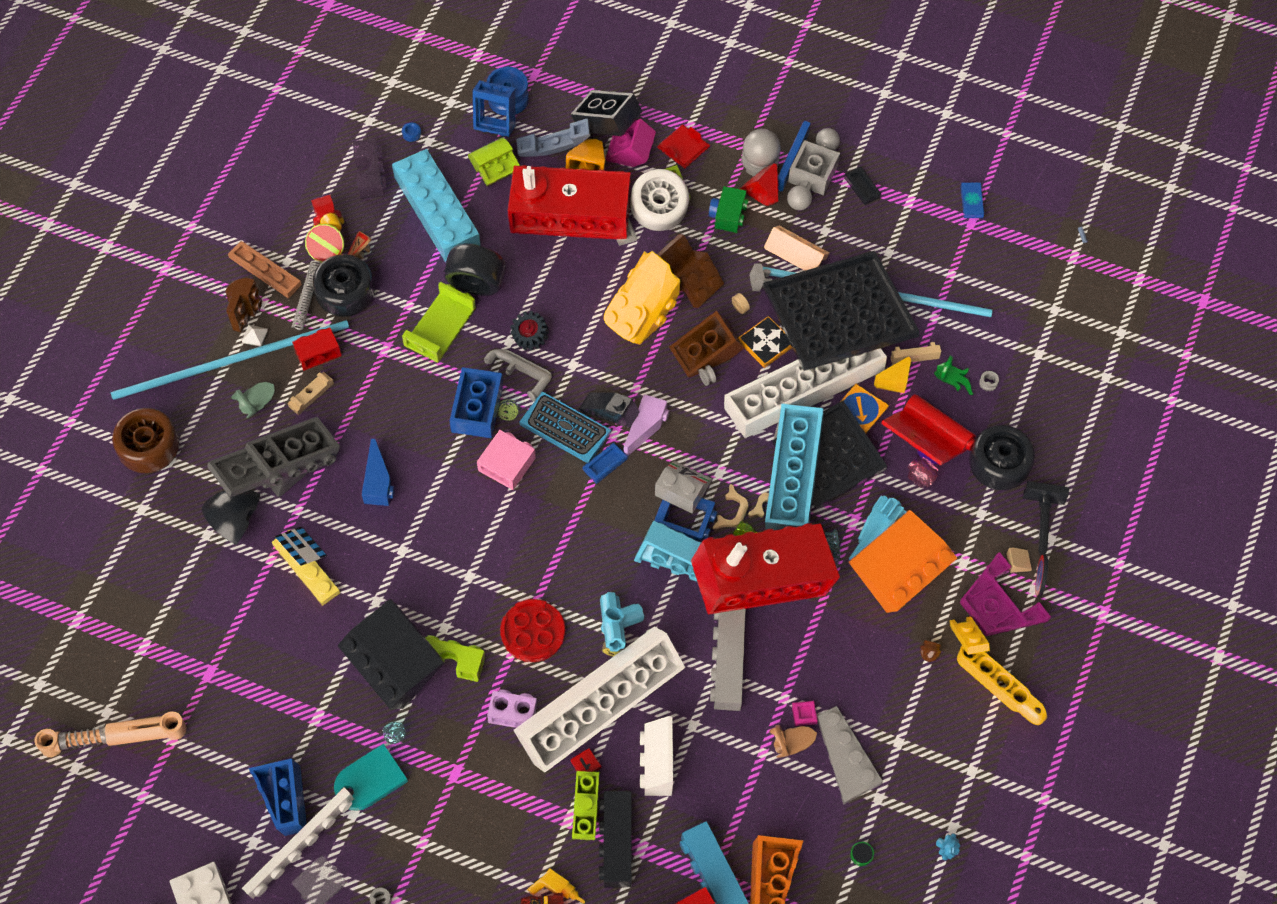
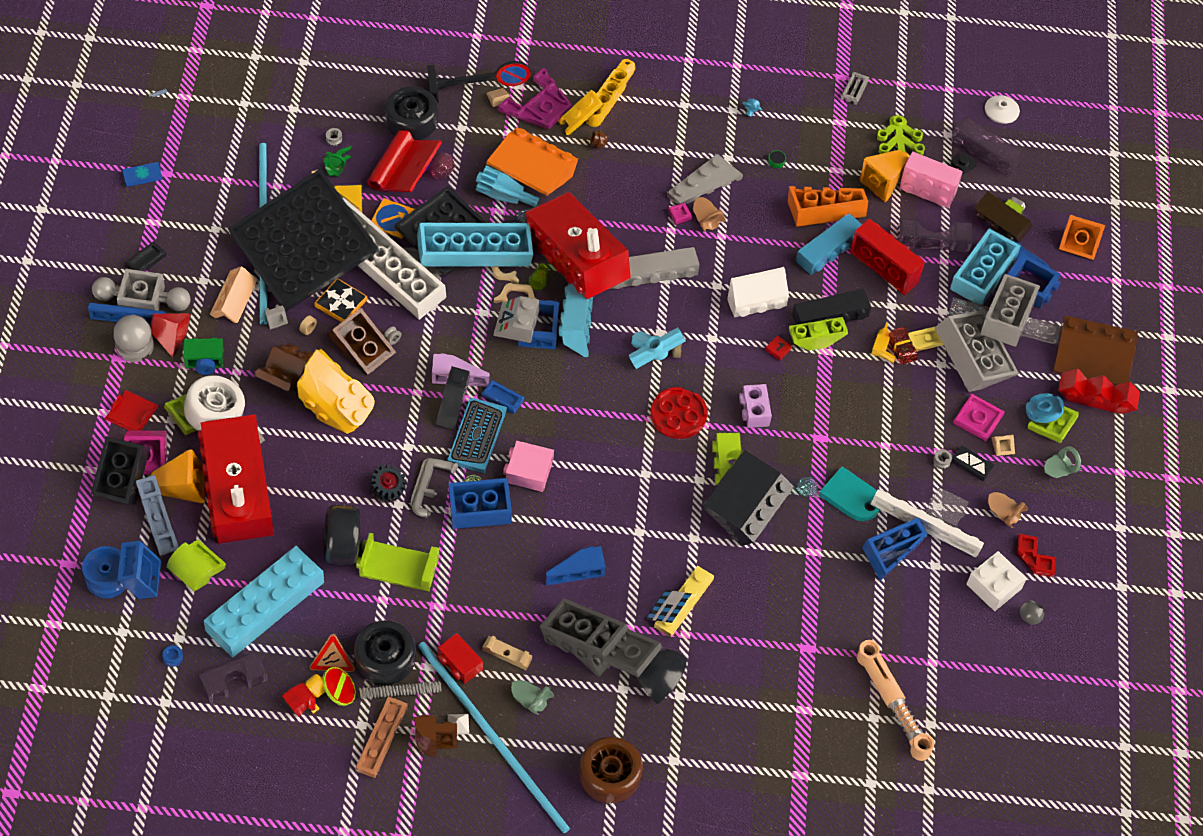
camera: 110 degrees left, 5 degrees down
(599, 699) = (727, 340): white brick -> none

